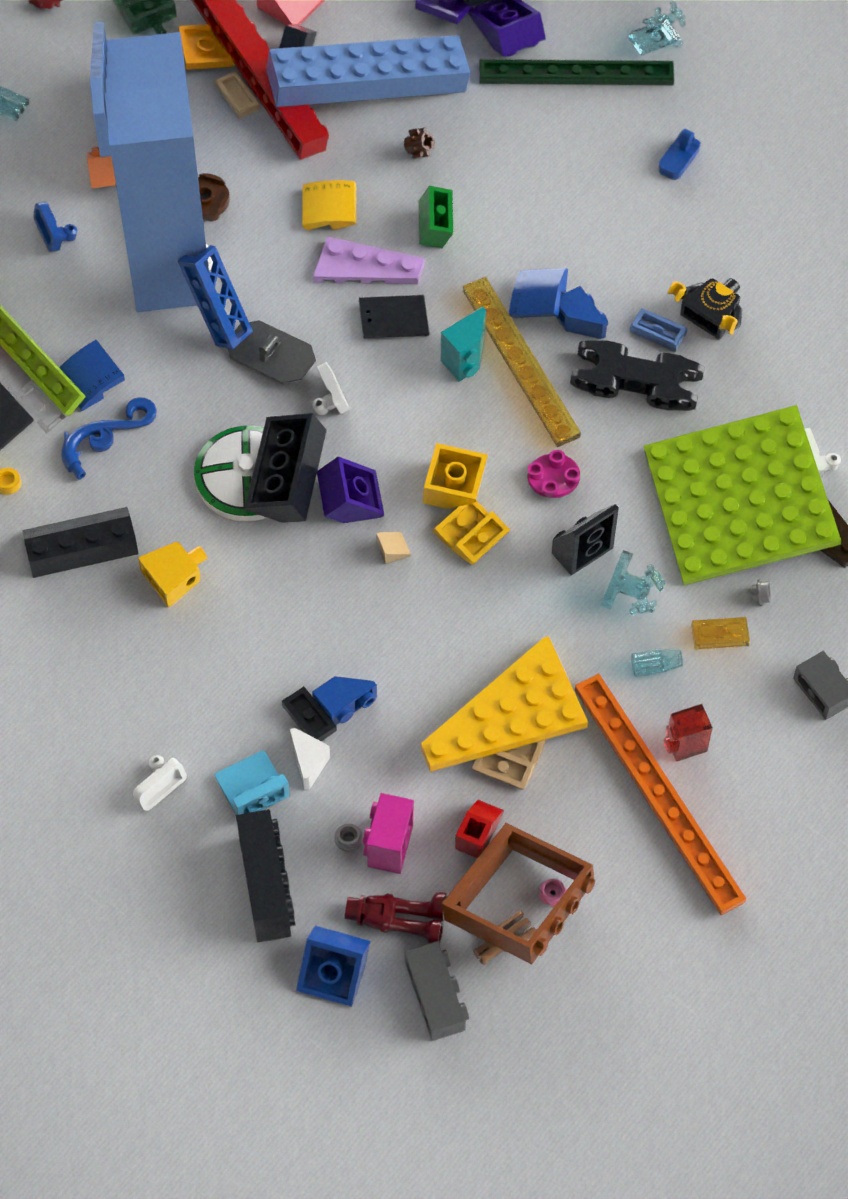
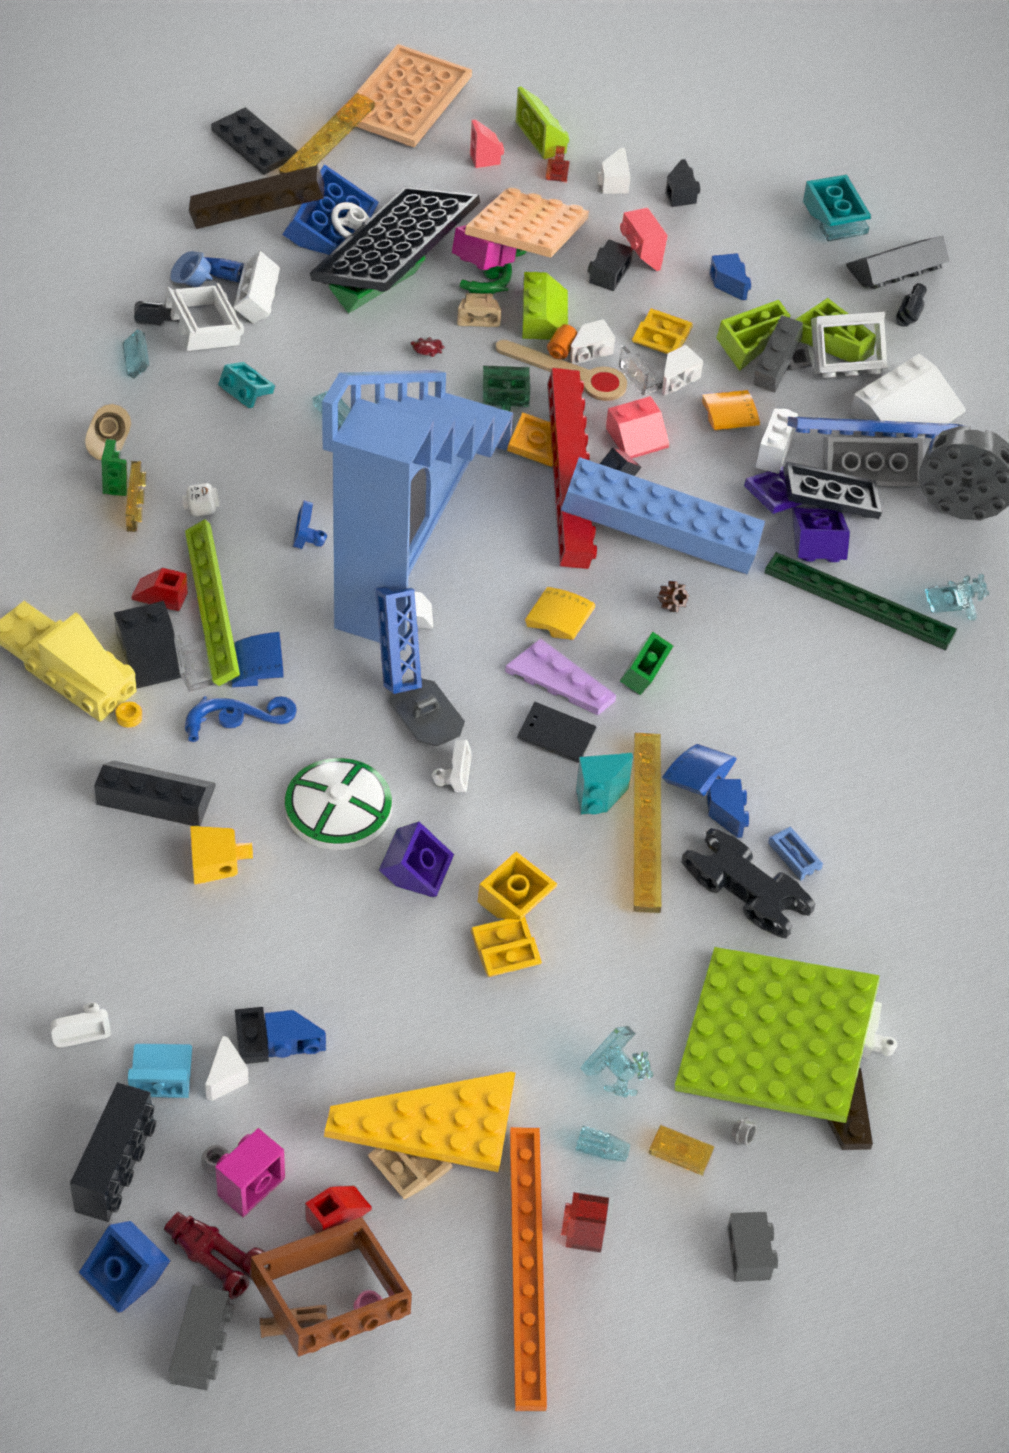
camera: 25 degrees right, 10 degrees down
(218, 196) = (454, 570): reddish brown plate -> none
(237, 95) = (539, 490): tan tile -> none
(286, 467) = (370, 811): black slope -> none
(392, 546) = (425, 925): tan slope -> none
(553, 475) = (613, 933): dark pink dish -> none
(586, 540) = (602, 1002): black slope -> none
(679, 155) = (912, 711): blue piece -> none
(710, 305) = (856, 851): black torso -> none

